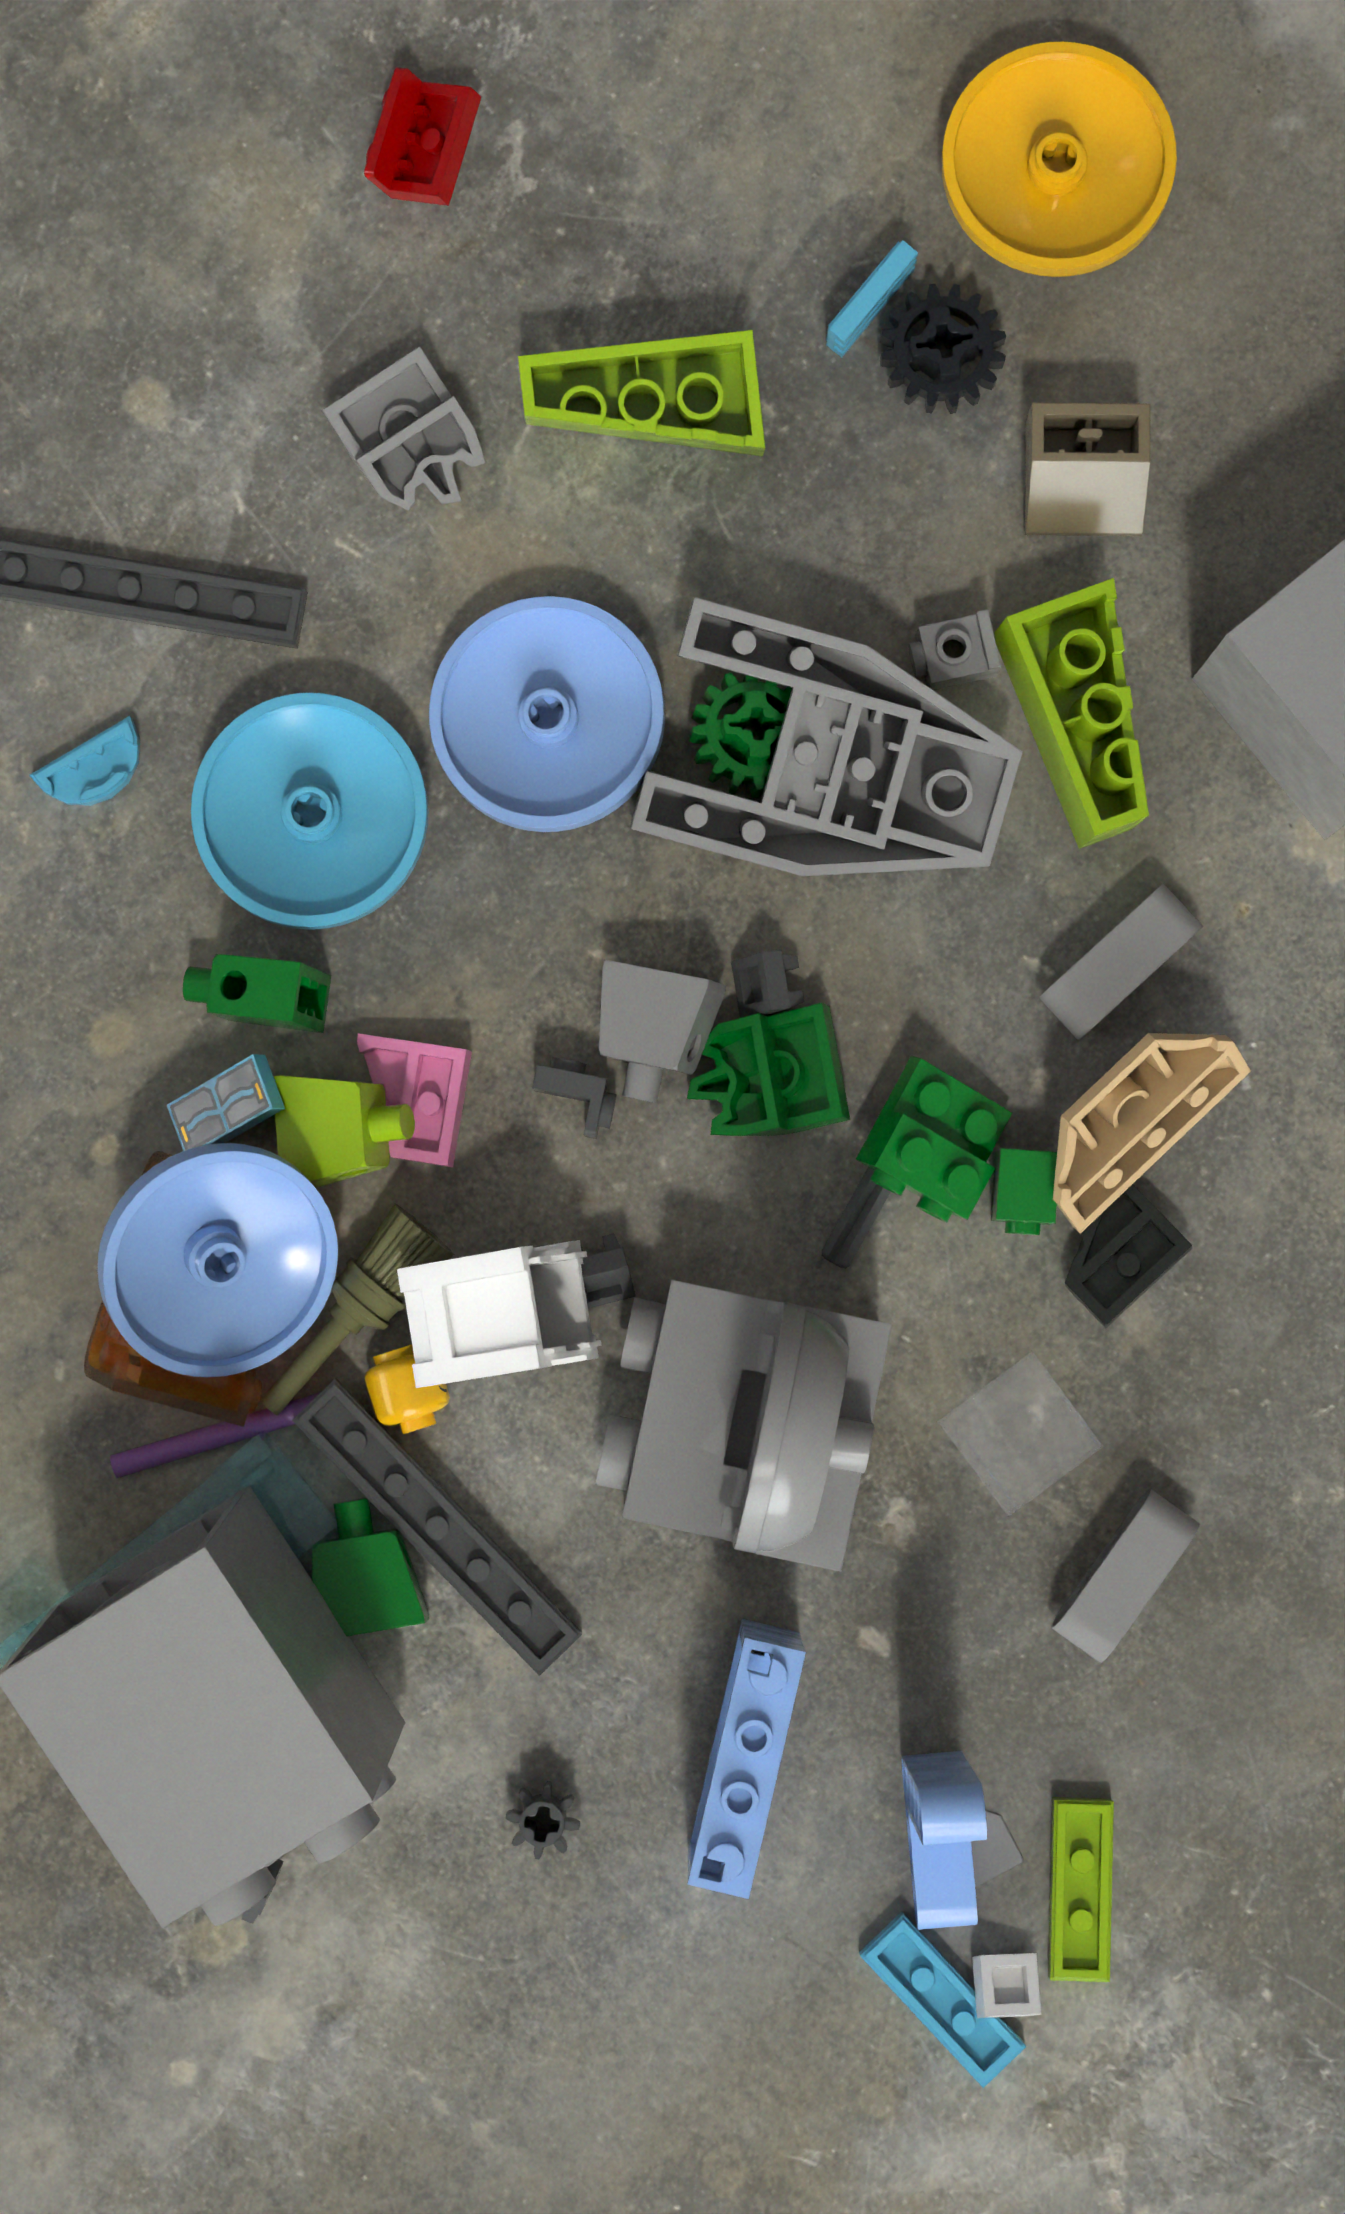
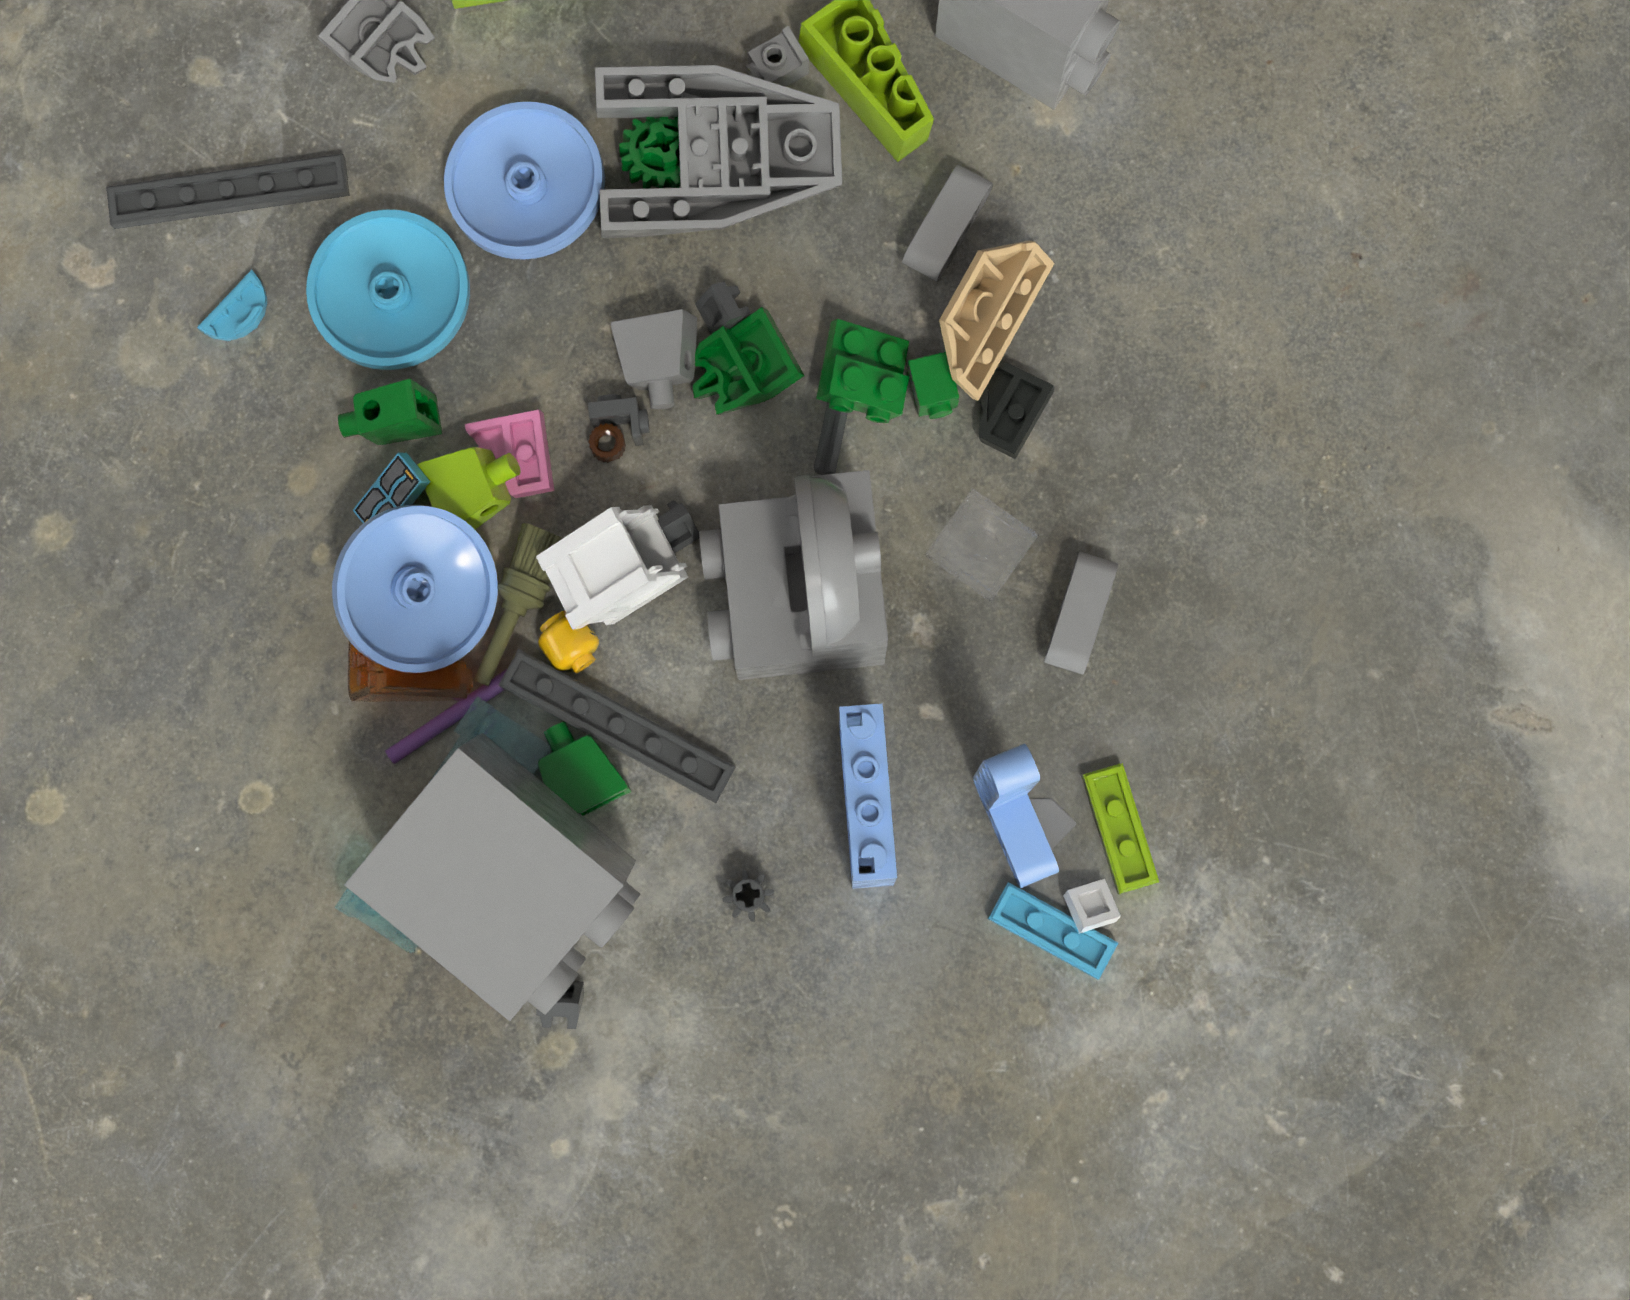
camera: 20 degrees left, 5 degrees down
(530, 1112) = (613, 454): none -> reddish brown axle

